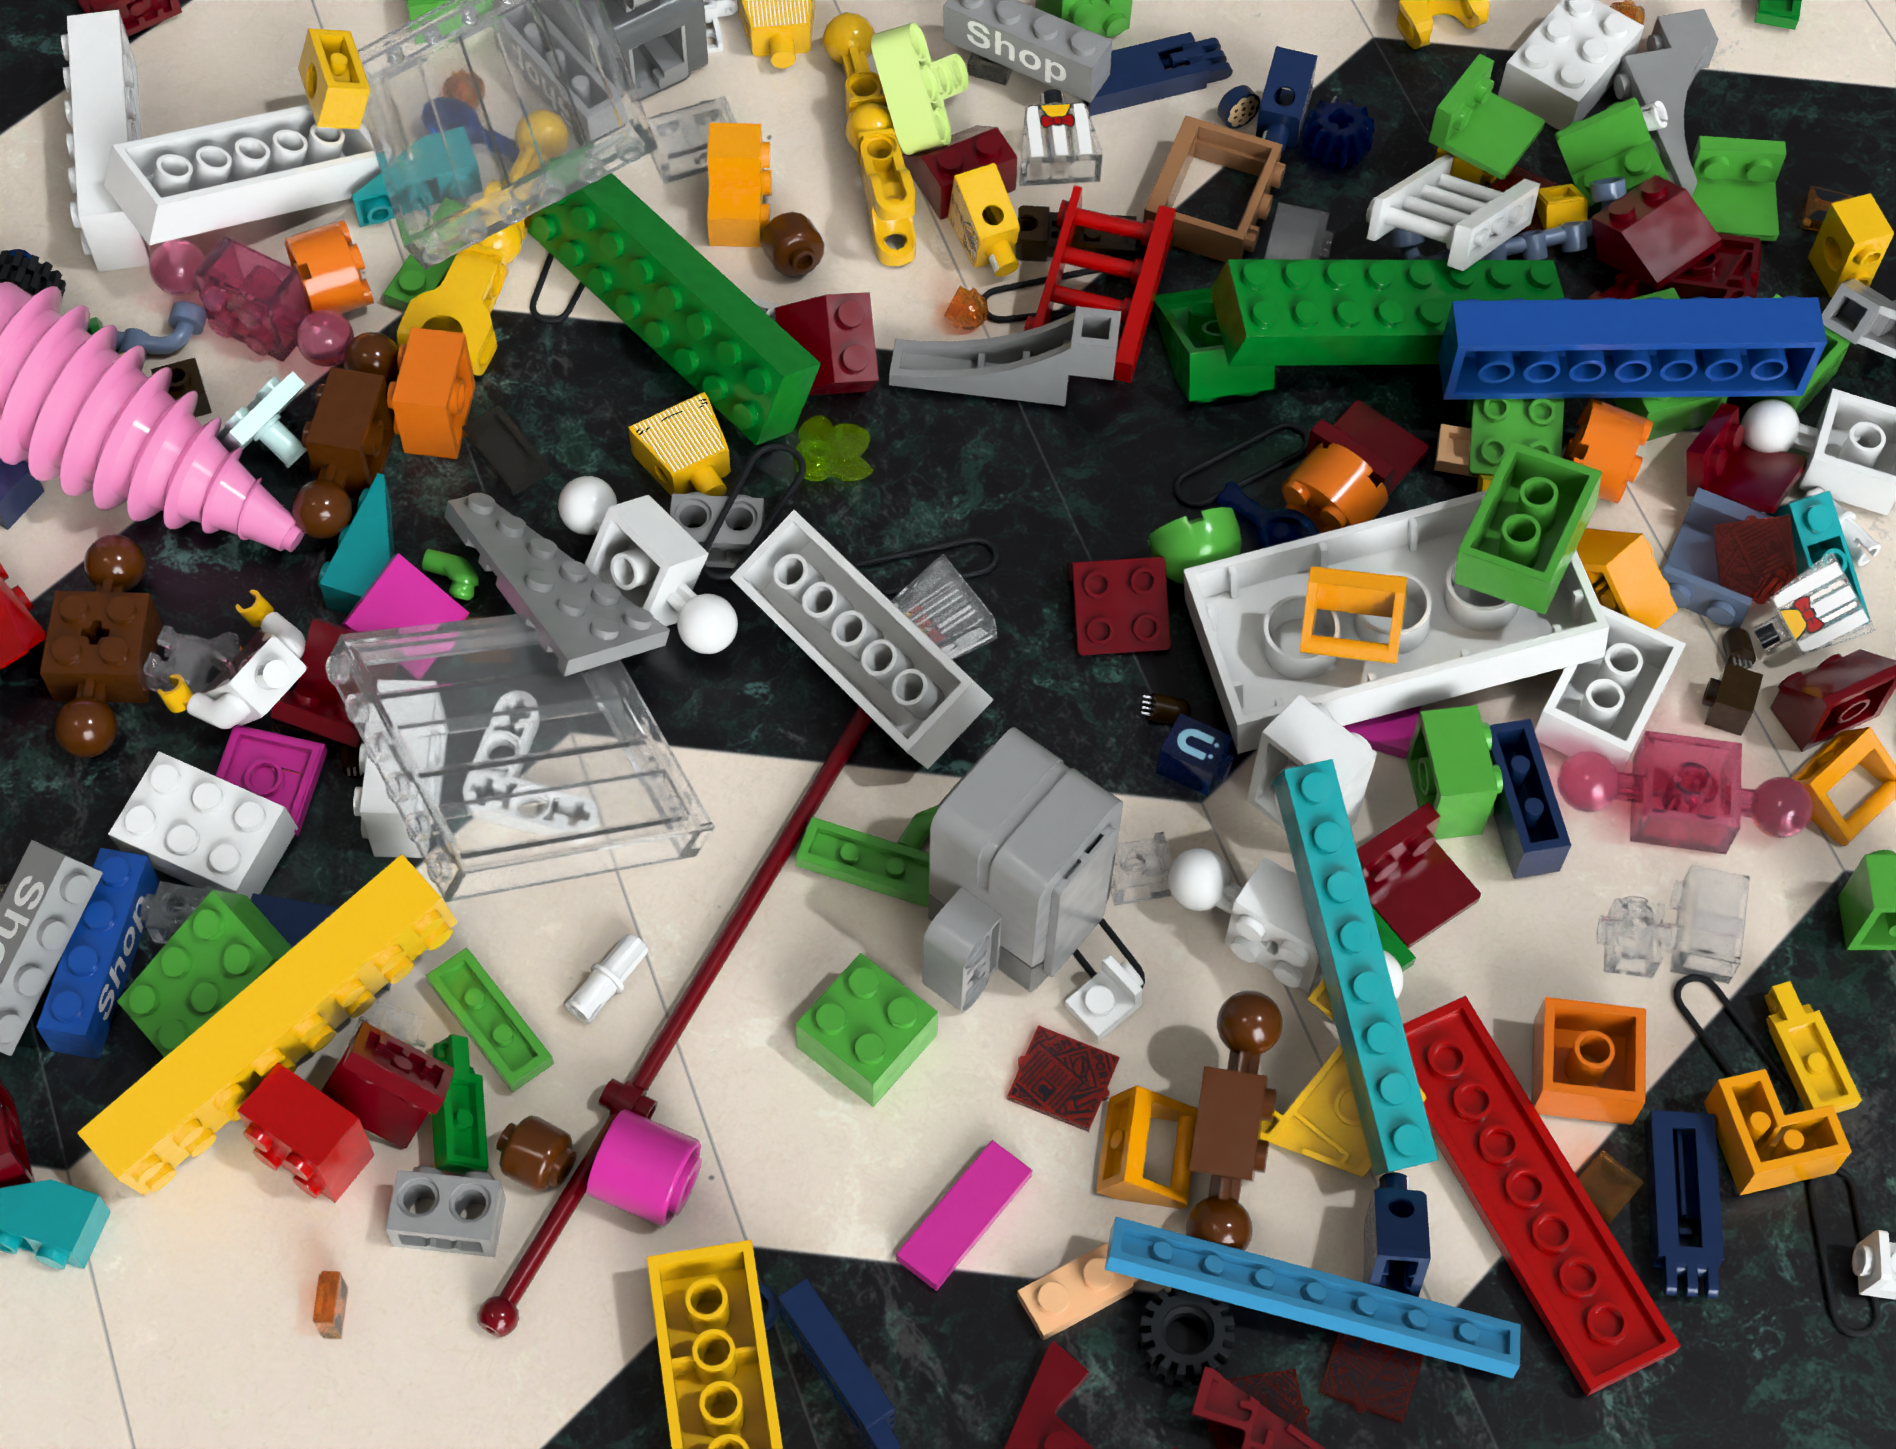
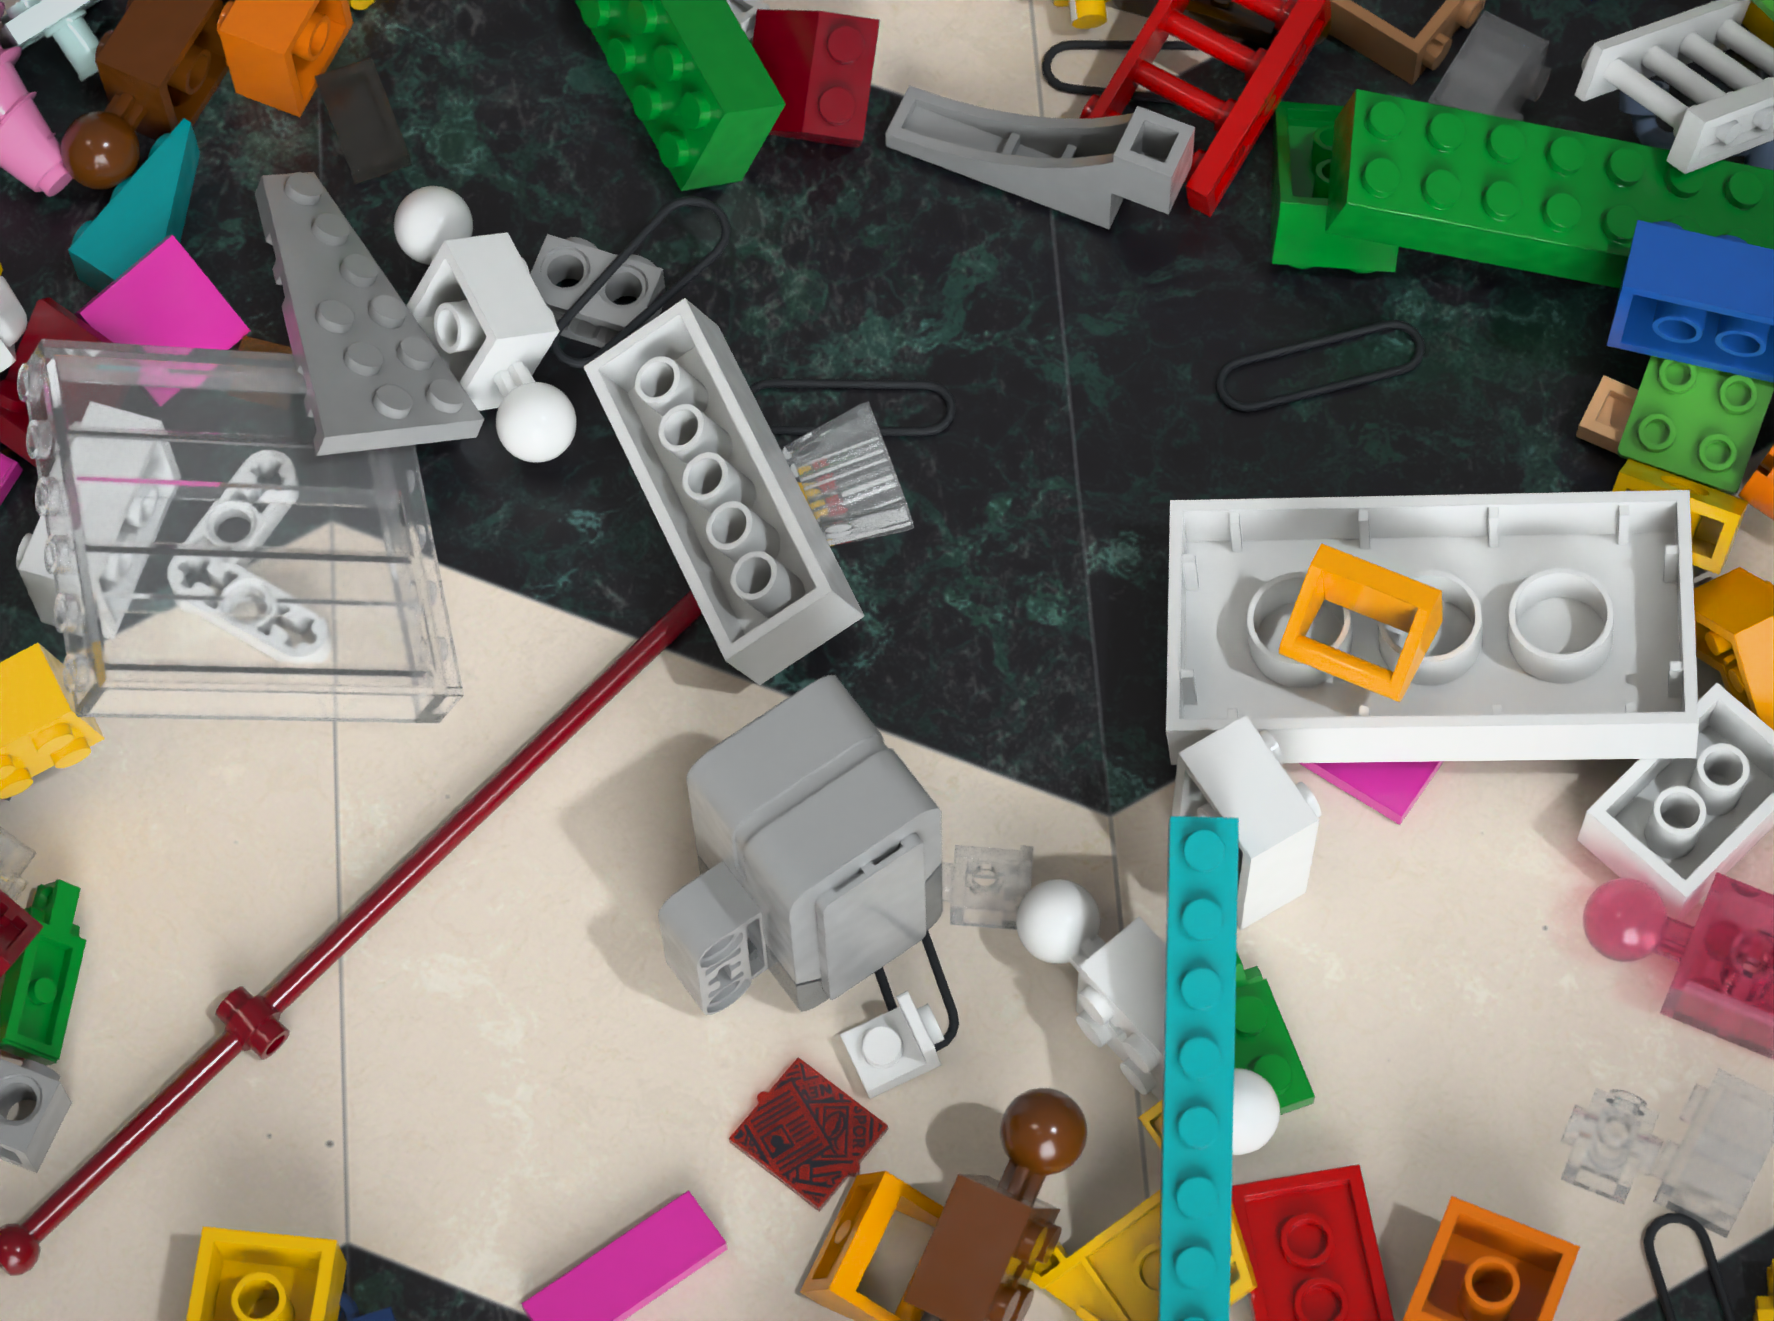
camera: 20 degrees right, 5 degrees up
(456, 569) = (252, 271): bright green arm -> none
(489, 1019) = (115, 871): bright green plate -> none
(536, 1153) = (119, 1058): reddish brown head -> none
(607, 978) = (276, 855): white axle -> none
(645, 1168) = (240, 1112): dark pink piece -> none
(683, 448) = (588, 174): yellow torso -> none
(833, 450) = (783, 217): clear neon green plate -> none
(865, 861) = (632, 779): bright green plate -> none
(866, 1029) = (574, 1007): bright green brick -> none
(967, 309) = (1019, 64): clear orange plate -> none
(1120, 605) = (1086, 522): dark red bracket -> none
(1164, 708) = (1104, 679): dark brown piece -> none
(1195, 755) = (1116, 751): clear blue brick -> none
(1196, 541) = (1209, 466): bright green cylinder -> none
(1273, 525) = (1332, 466): clear blue piece -> none
(1334, 489) = (1416, 438): orange brick -> none
(1376, 440) = (1488, 390): dark red bracket -> none
(1413, 878) = (1344, 989): dark red bracket -> none
(1454, 769) = (1444, 863): bright green brick -> none
(1527, 527) = (1628, 561): bright green brick -> none
(1527, 807) = (1525, 920): dark blue brick -> none

